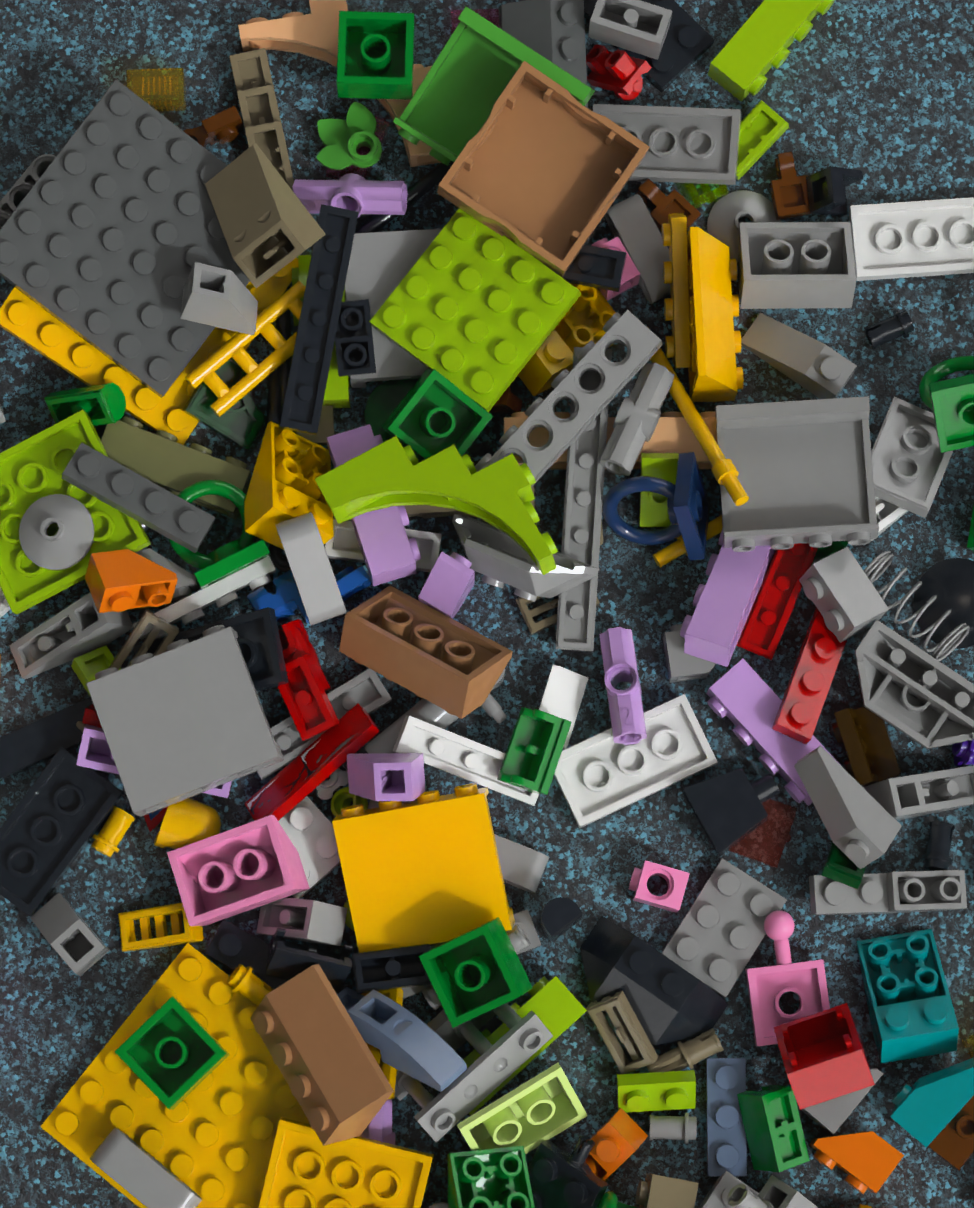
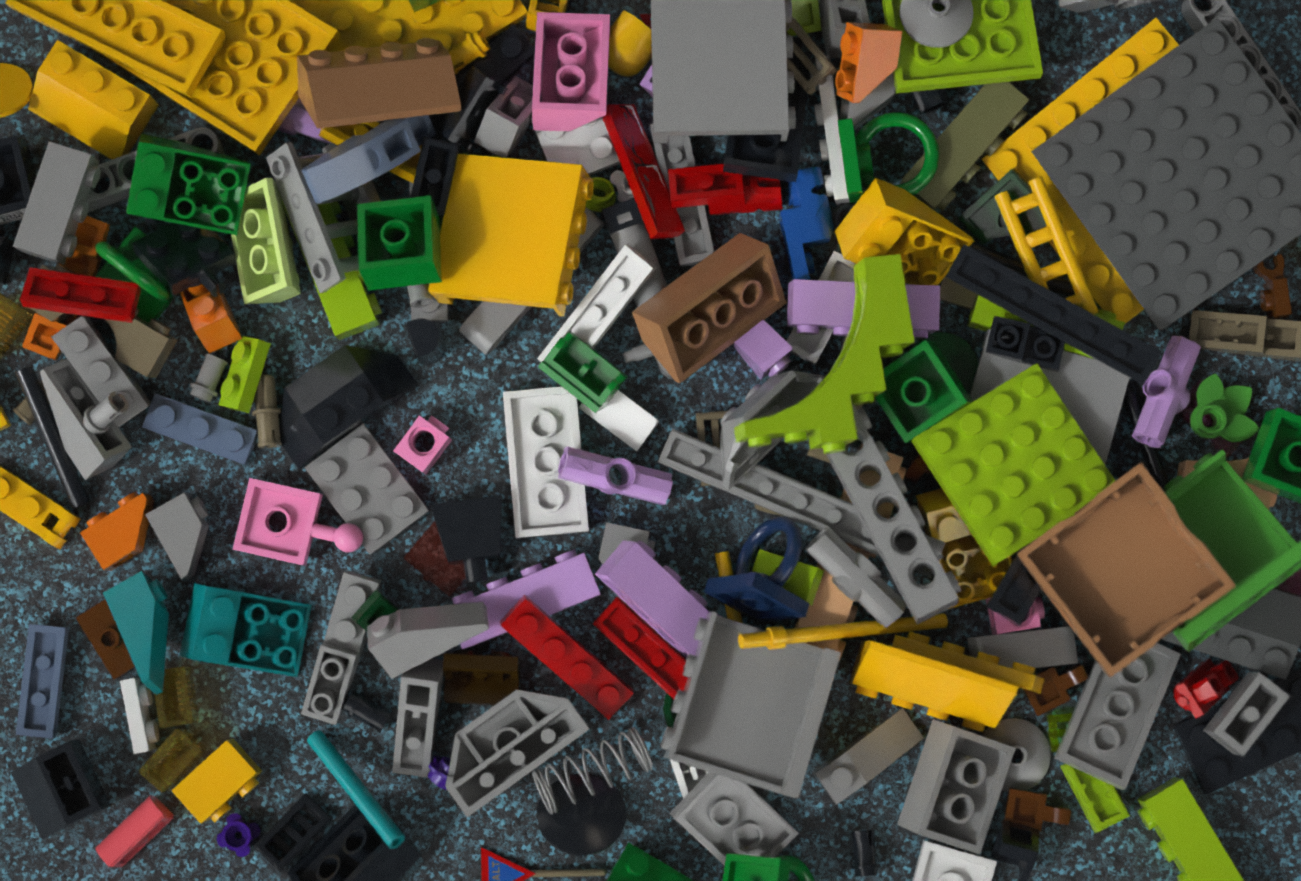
camera: 115 degrees right, 5 degrees up
(102, 403) = (1043, 95): green brick -> none
(138, 497) = (941, 93): dark grey plate -> none
(218, 300) = (1101, 227): light grey slope -> none
(260, 216) = (1168, 290): dark tan slope -> none
(311, 568) = (819, 224): light grey beam -> none
(386, 776) = (604, 228): lavender slope -> none
(635, 1034) = (305, 367): dark tan tile -> none
(773, 1128) = (171, 464): green hinge -> none
(823, 1056) = (213, 528): red container -> none
(843, 594) = (624, 708): light grey brick -> none

